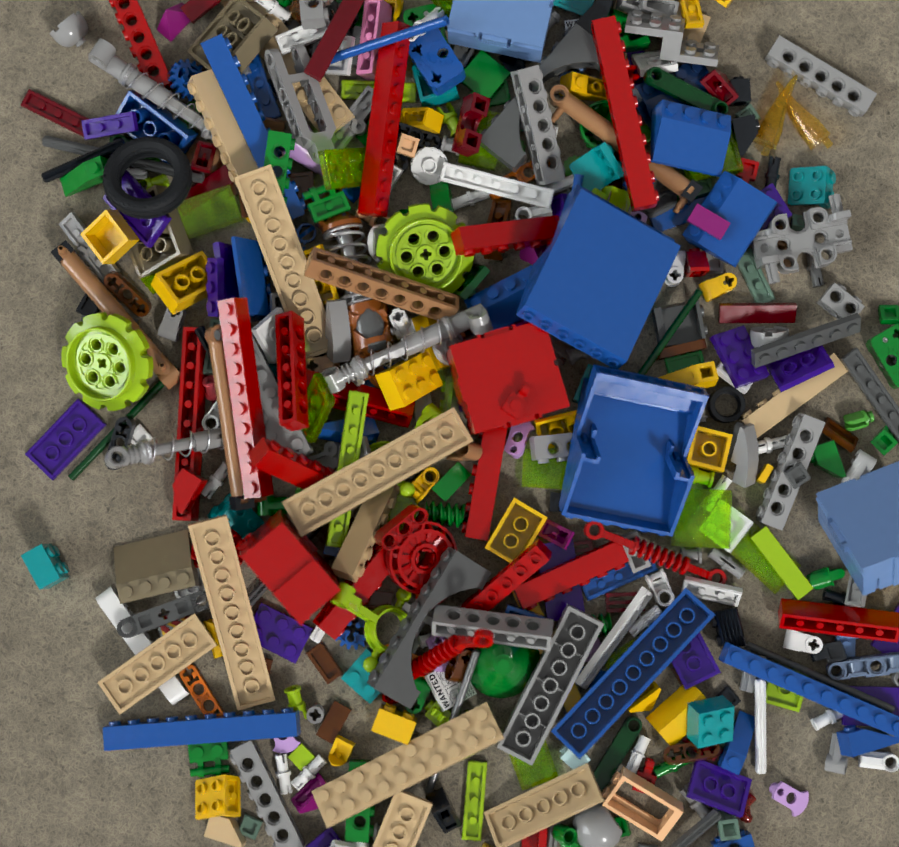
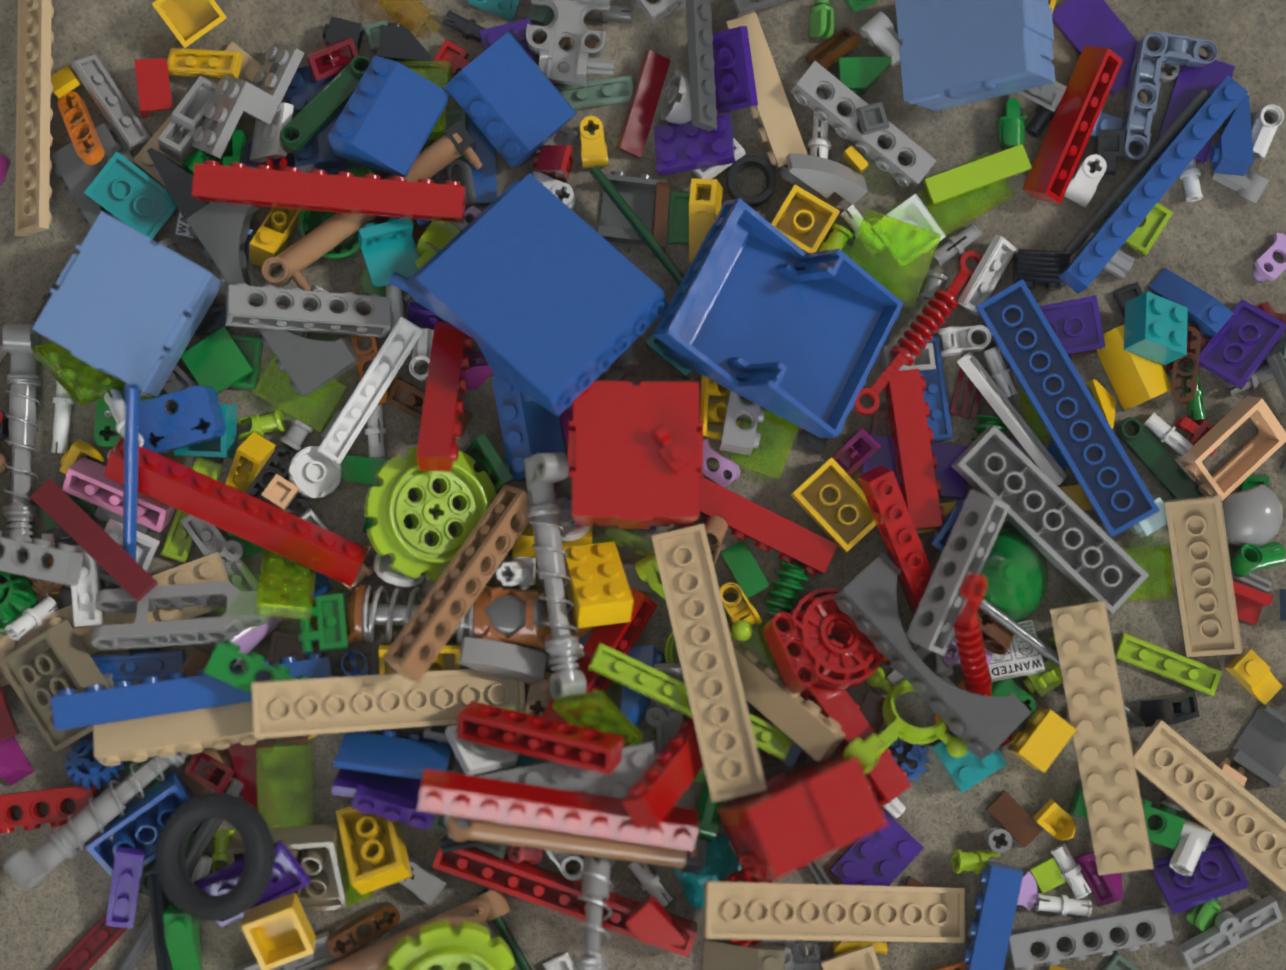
camera: 75 degrees left, 0 degrees up
(324, 662) = (933, 808): reddish brown tile -> none
(466, 138) = (260, 391): dark red arch -> none
(708, 221) = (507, 128): magenta tile -> none
(760, 726) = (1178, 267): white axle -> none

